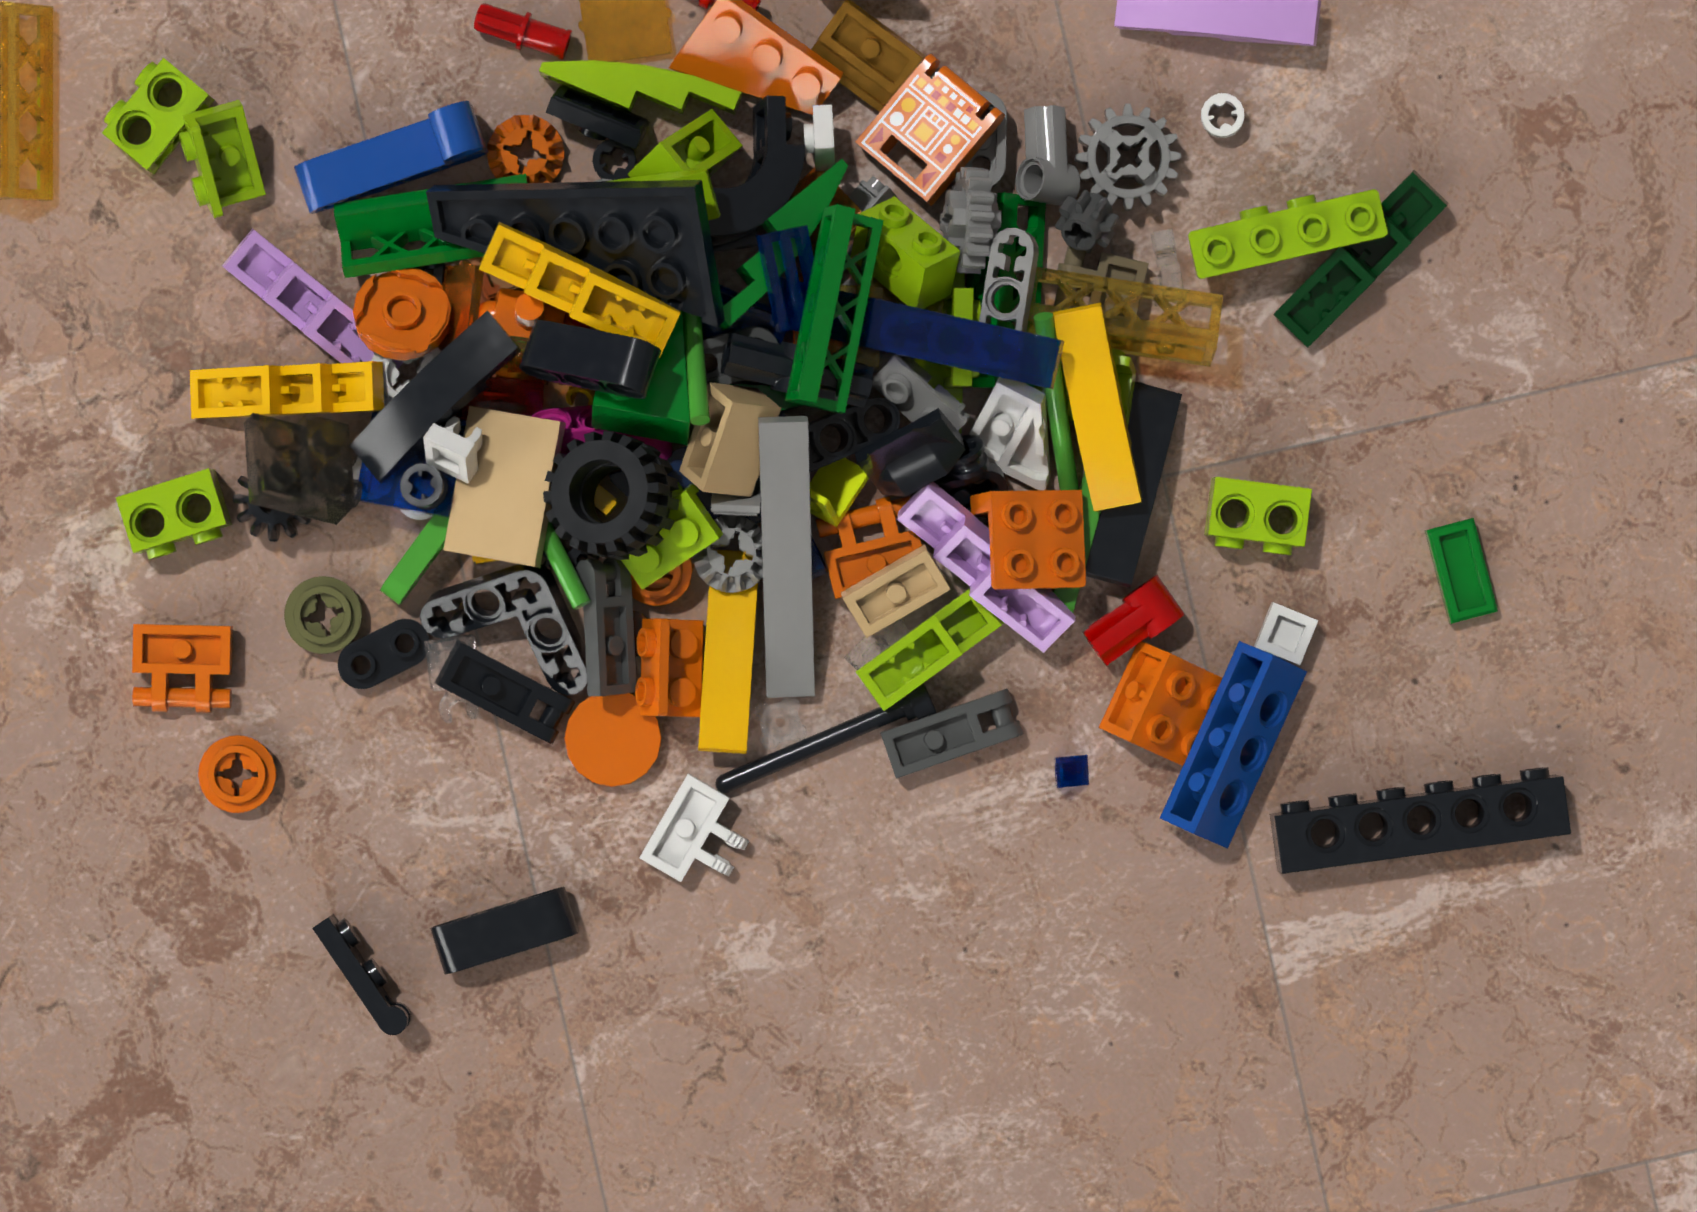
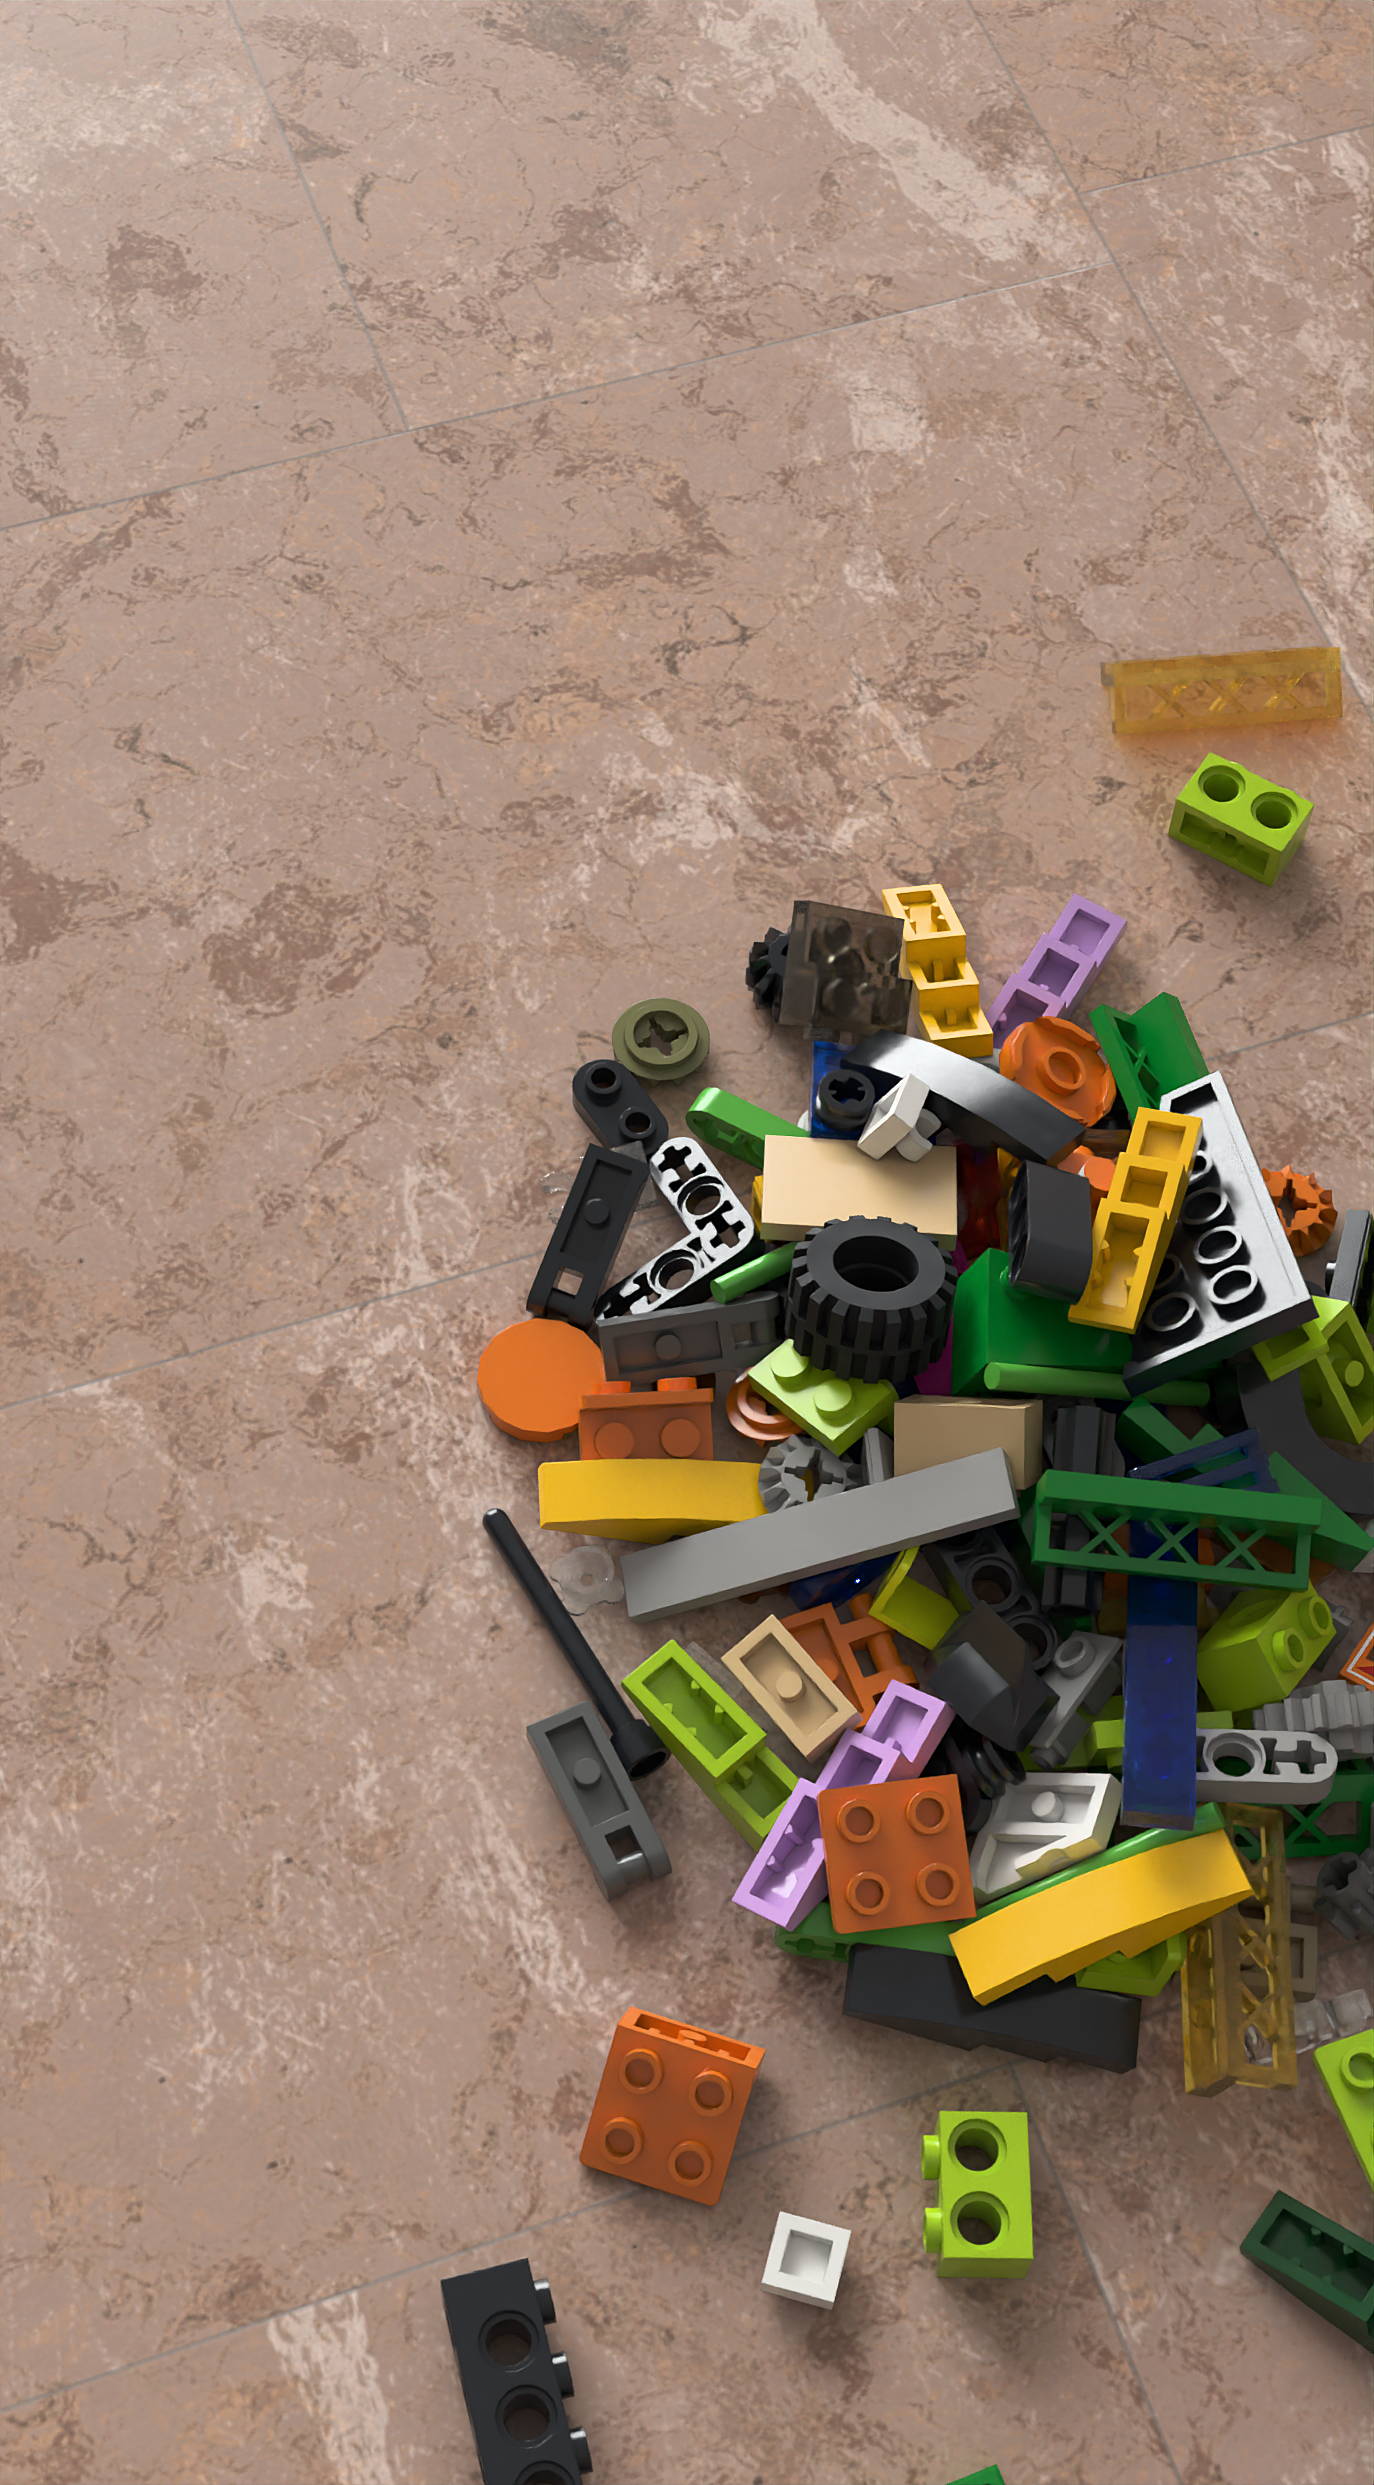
camera: 80 degrees right, 30 degrees down
(171, 501) = (761, 858): lime brick -> none
(182, 650) = (596, 895): orange plate -> none
(221, 790) = (473, 960): orange gear -> none
(223, 156) = (1207, 874): lime bracket -> none
(364, 977) = (202, 1115): black plate -> none
(392, 159) = (1280, 1106): blue beam -> none
(504, 930) = (274, 1271): black beam -> none
(685, 829) = (427, 1473): white hinge -> none
(1071, 771) = (561, 1972): clear blue piece -> none
(1142, 615) = (805, 2046): red piece -> none
(1233, 744) = (662, 2174): blue brick -> none

